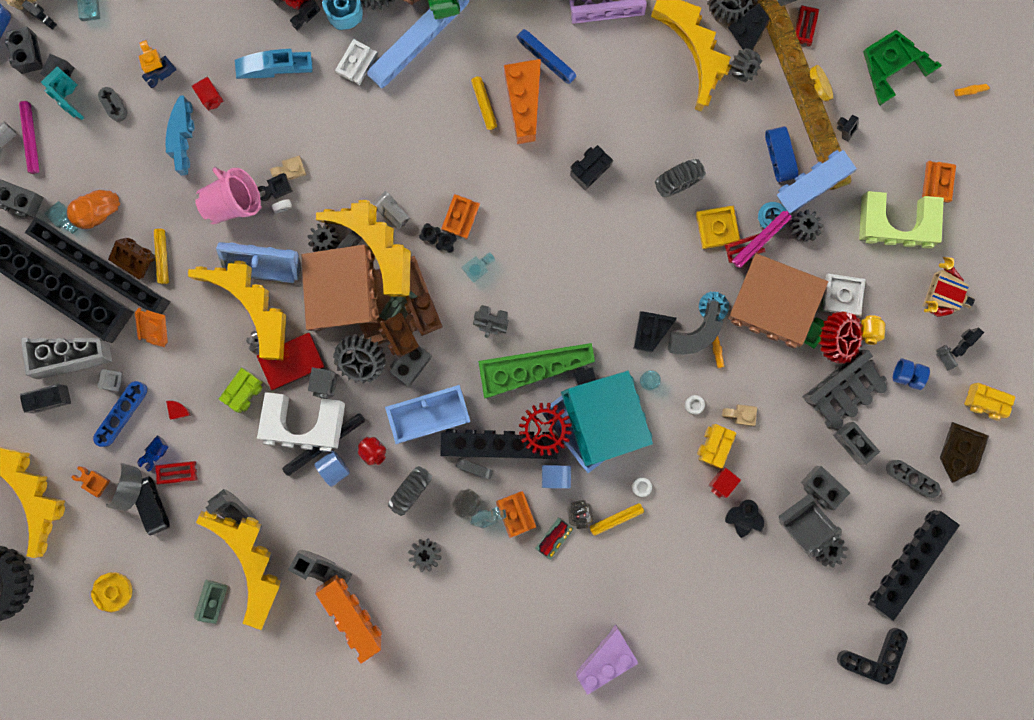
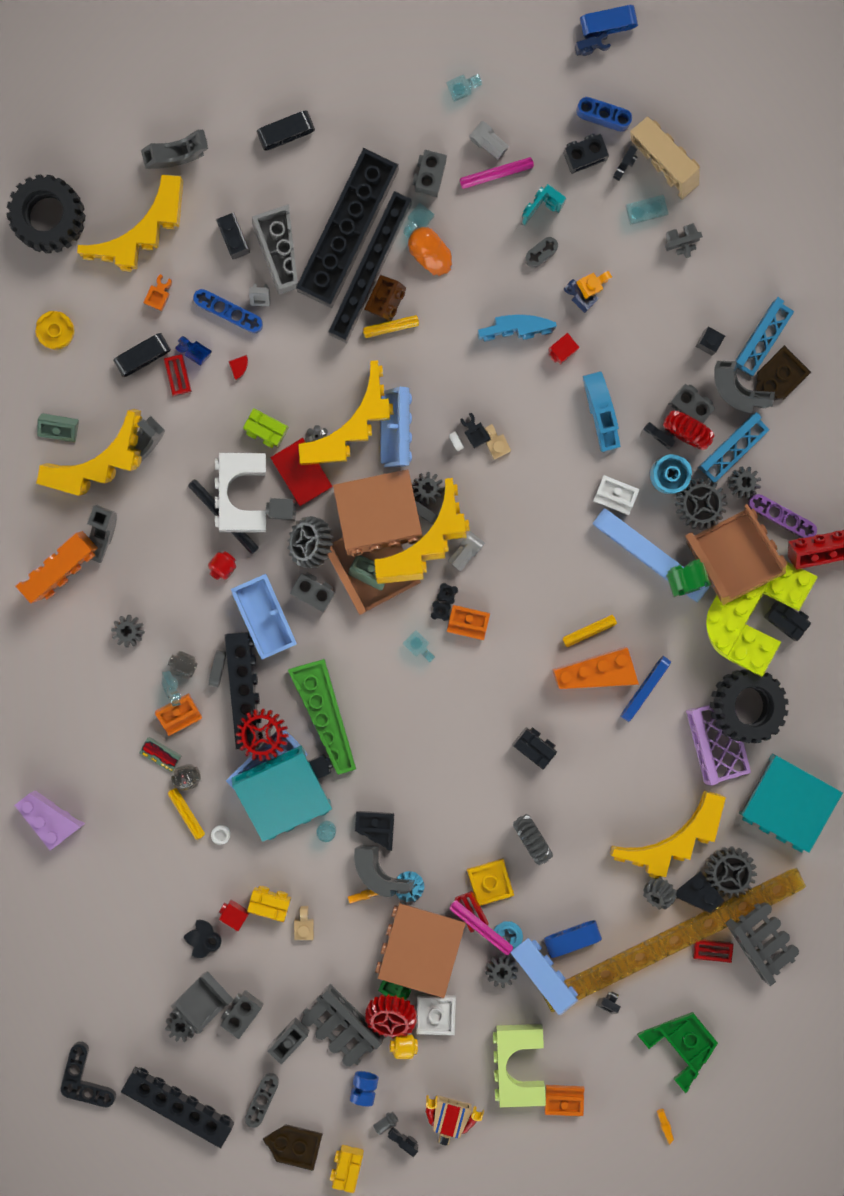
camera: 85 degrees right, 5 degrees up
(54, 61) = (570, 189): black brick -> none
(127, 489) = (155, 335): dark grey piece -> none
(151, 327) = (316, 331): orange plate -> none
(229, 196) = (455, 390): bright pink piece -> none
(332, 468) = (199, 529): medium blue piece -> none
(399, 335) = (337, 578): reddish brown bracket -> none
(409, 490) = (187, 609): dark grey gear -> none
(424, 314) = (363, 600): reddish brown bracket -> none
(490, 323) = (362, 665): dark grey hips -> none
(556, 476) = (219, 750): medium blue piece -> none
(694, 404) = (308, 877): white tile -> none
(822, 83) = (651, 973): yellow tile -> none

